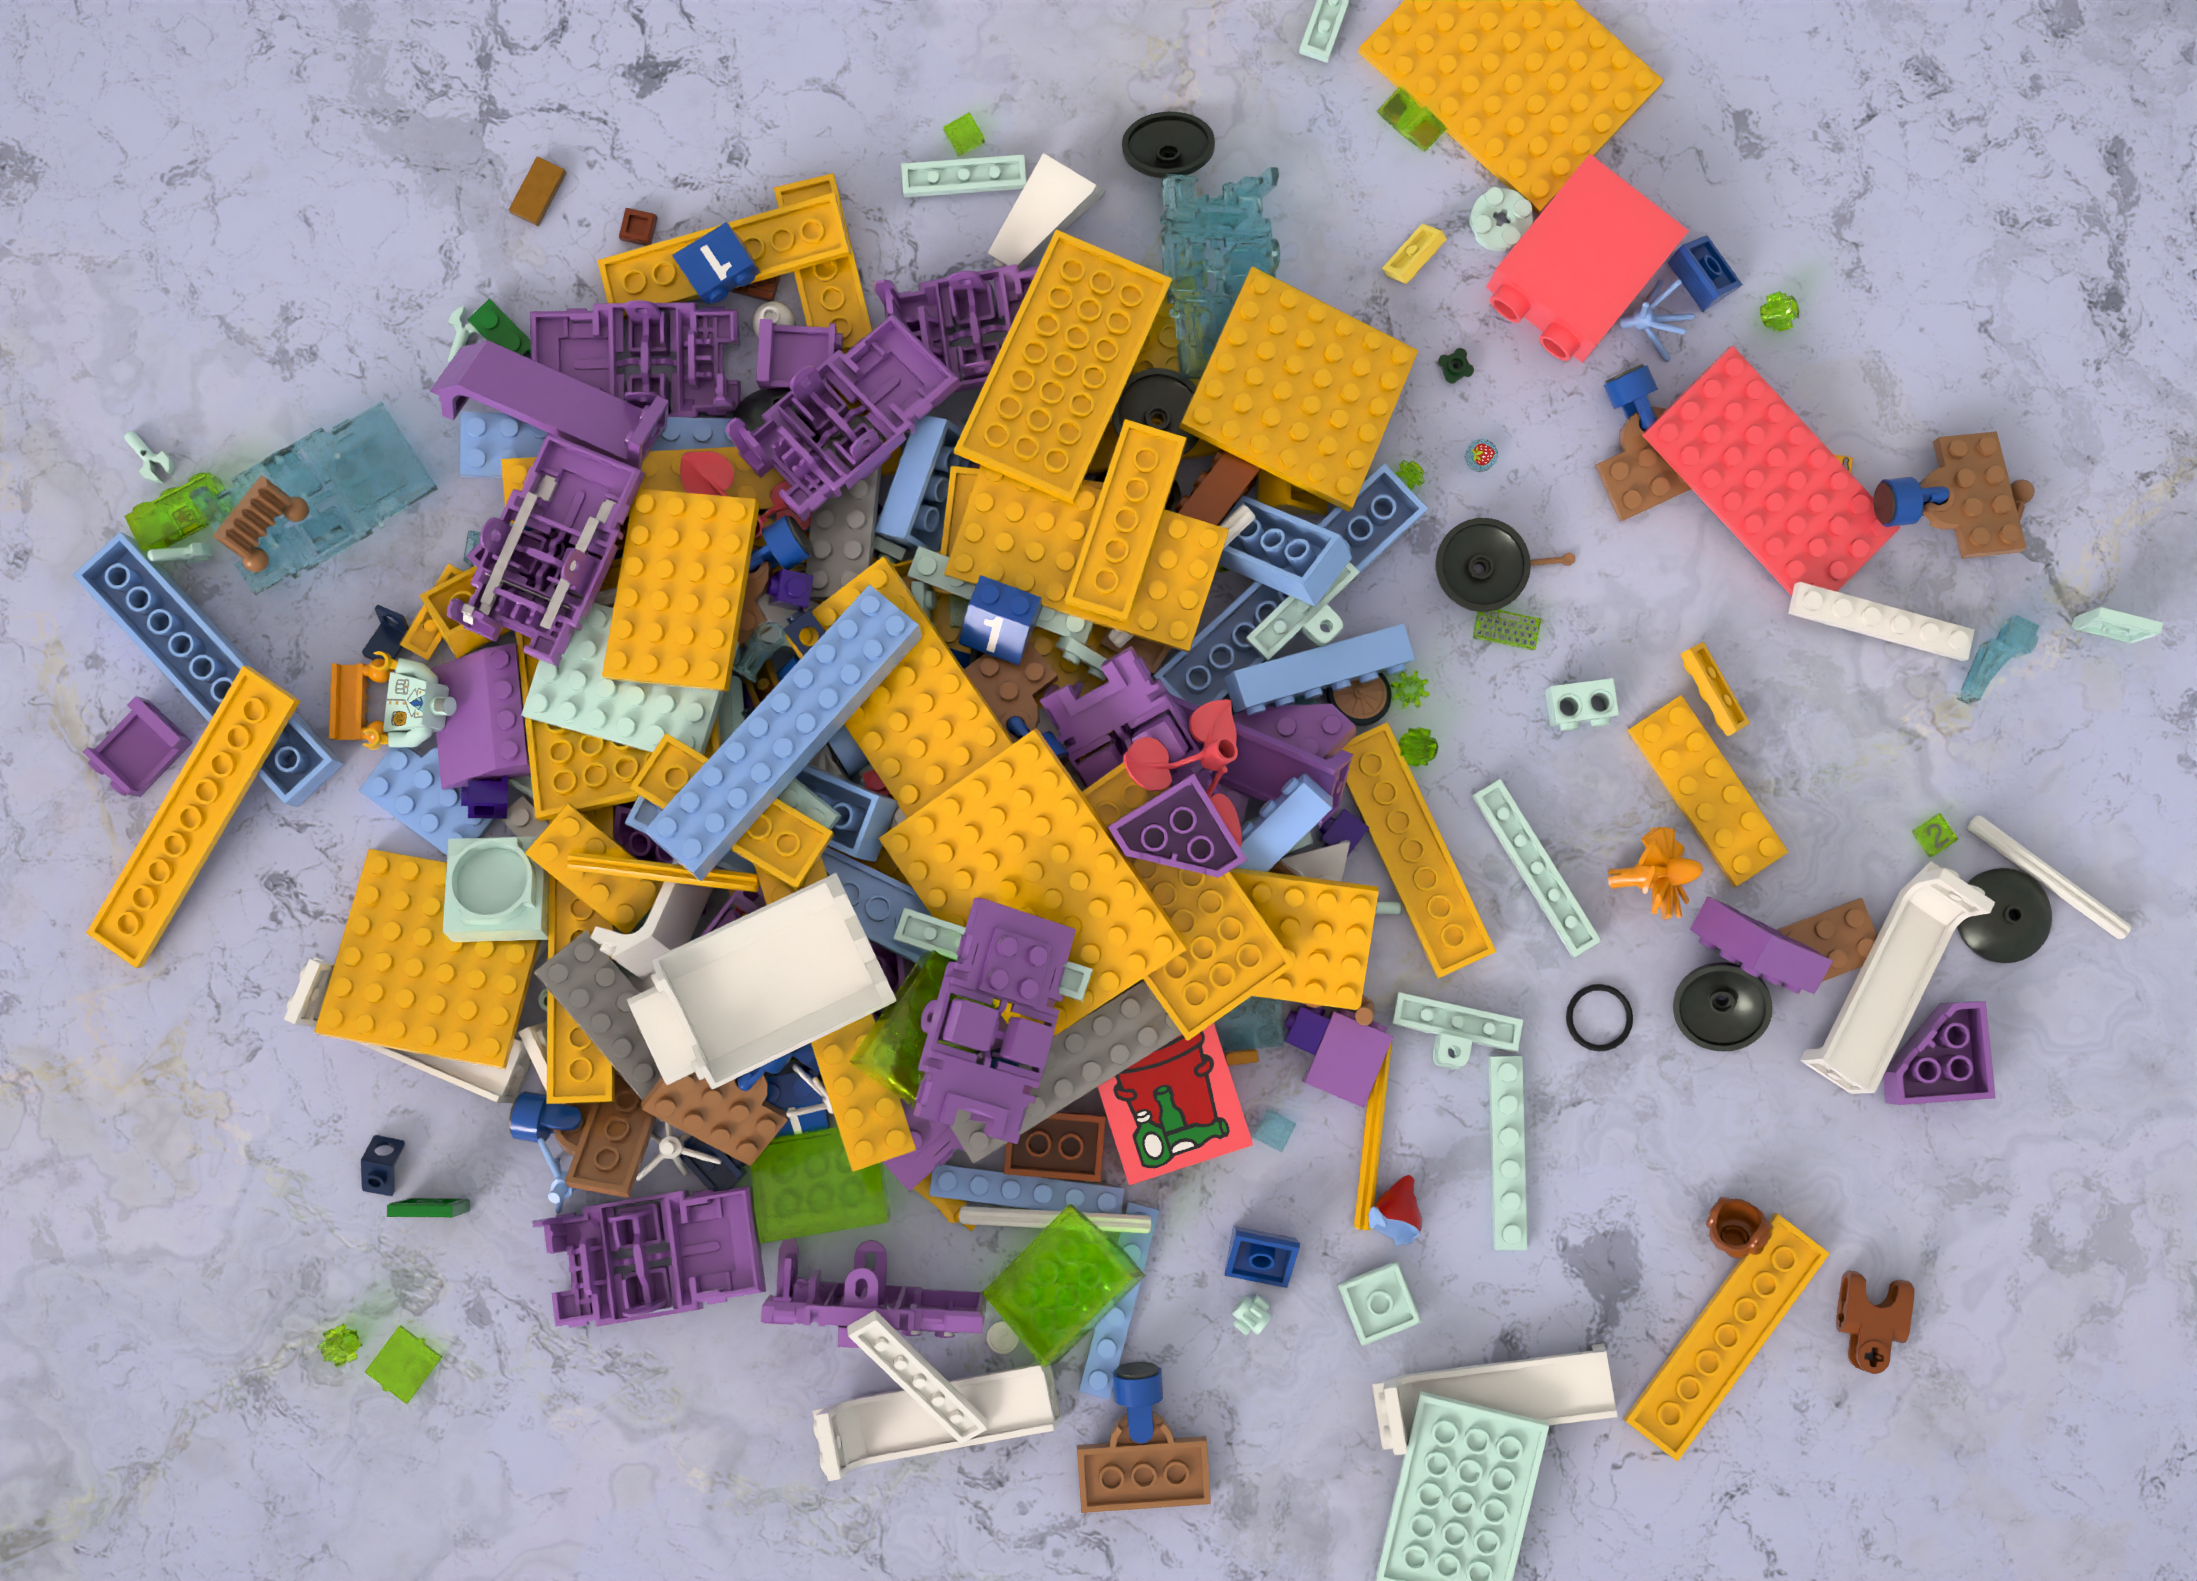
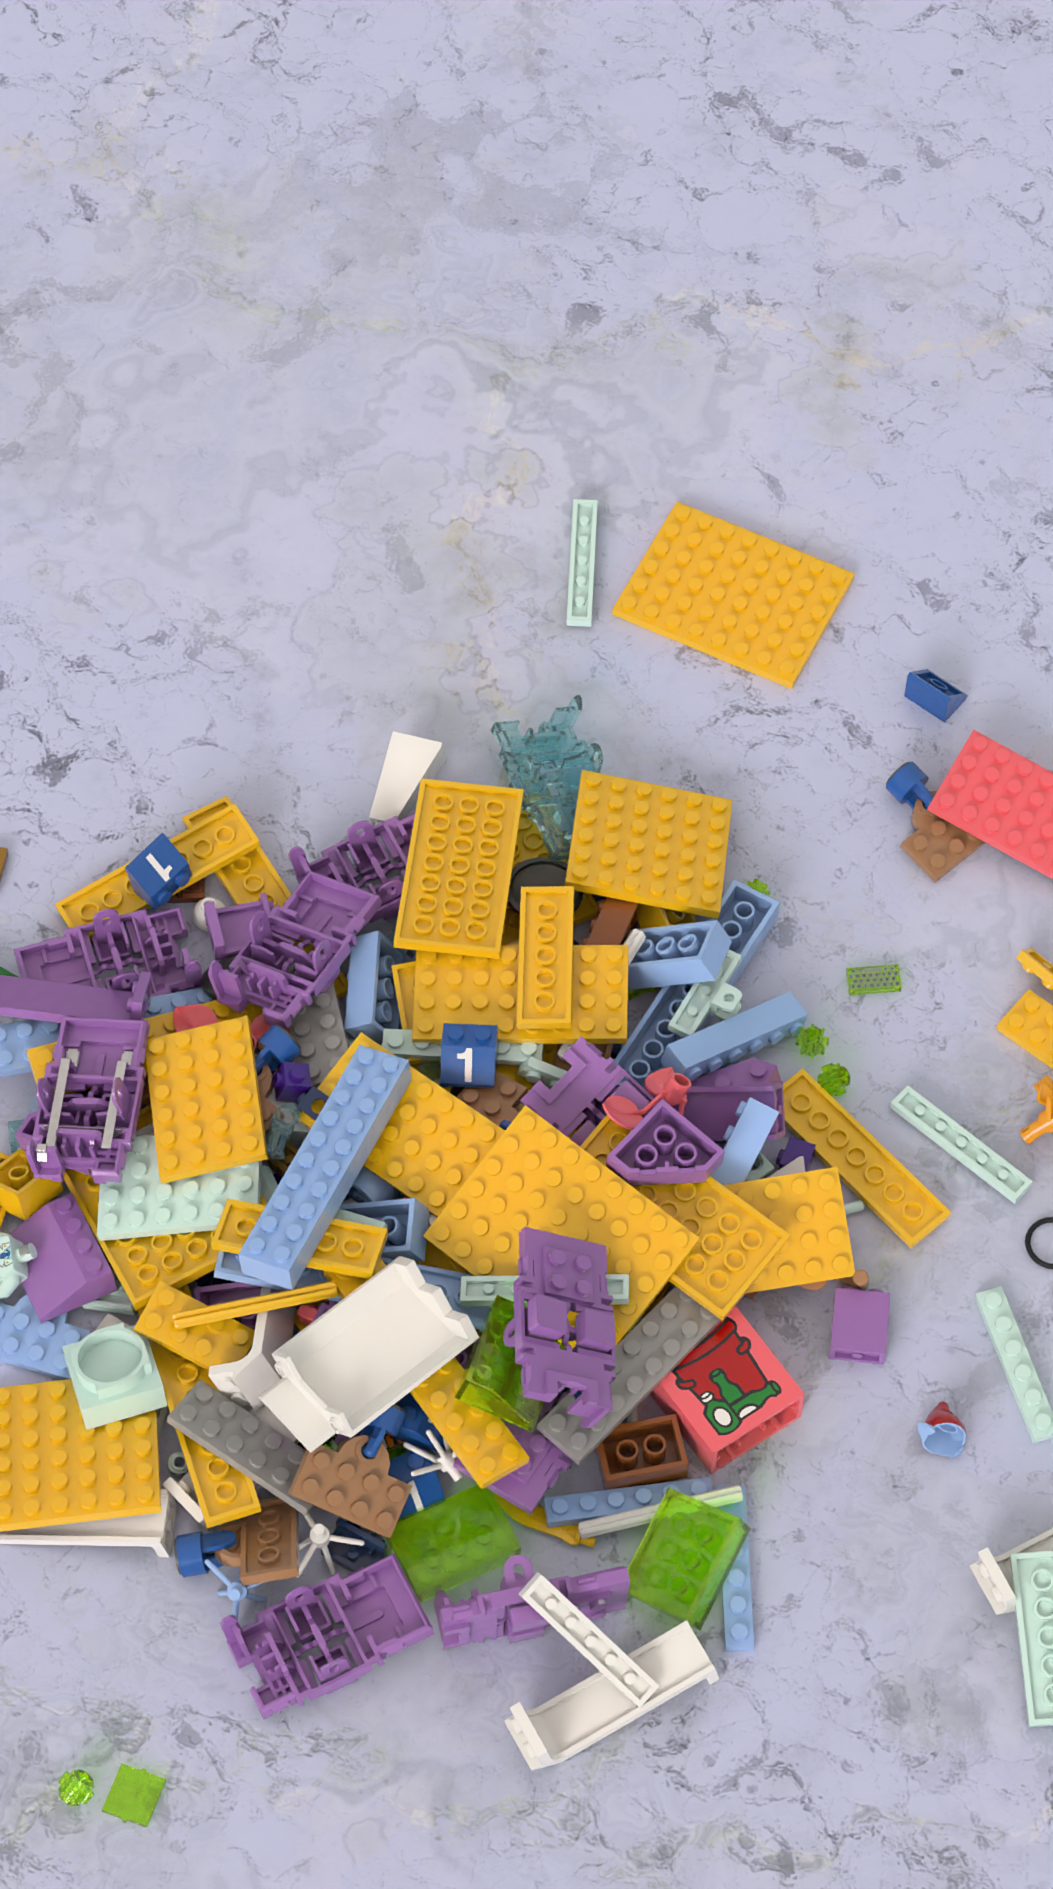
camera: 15 degrees left, 25 degrees down
(378, 1170) = (69, 1638): dark blue bracket -> none
(428, 1207) = (124, 1648): green tile -> none
(486, 798) = (81, 1316): dark purple brick -> none
(638, 227) = (78, 875): copper tile -> none
(963, 134) = (321, 745): clear neon green tile -> none
(963, 176) = (331, 772): light aqua plate -> none
(1001, 1338) = (646, 1626): white piece -> none
(1142, 1460) = (797, 1682): medium nougat plate -> none
(1168, 144) = (485, 706): pearl dark grey dish -> none
(1241, 1057) = (777, 1345): pearl gold tile -> none
(1251, 1314) = (850, 1542): light aqua gear -> none
(1252, 1025) = (771, 1315): clear light blue hinge -> none
(1261, 1256) = (842, 1494): blue slope -> none
(1274, 1130) = (819, 1400): clear light blue tile -> none
(1305, 1028) = (817, 1312): dark purple brick -> none
(1363, 702) = (783, 1054): medium nougat wheel -> none
(1371, 1146) = (903, 1388): yellow axle -> none
(1379, 1303) = (953, 1507): light aqua plate -> none
(1410, 120) = (674, 651): clear neon green slope -> none
(1414, 253) = (705, 736): light yellow plate -> none
(1452, 374) = (765, 812): dark green plate -> none
(1456, 1027) = (939, 1279): light aqua plate -> none
(1481, 455) = (808, 863): tile -> none
(1497, 201) = (764, 685): light aqua plate -> none
(1497, 550) = (837, 922): pearl dark grey dish -> none
(1567, 559) = (903, 919): medium nougat hinge -> none
(1580, 697) = (949, 1009): light aqua brick -> none
(1584, 260) = (839, 705): coral brick -> none
(1646, 319) = (901, 735): light blue plant -> none
(1779, 311) = (1002, 703): clear neon green gear -> none

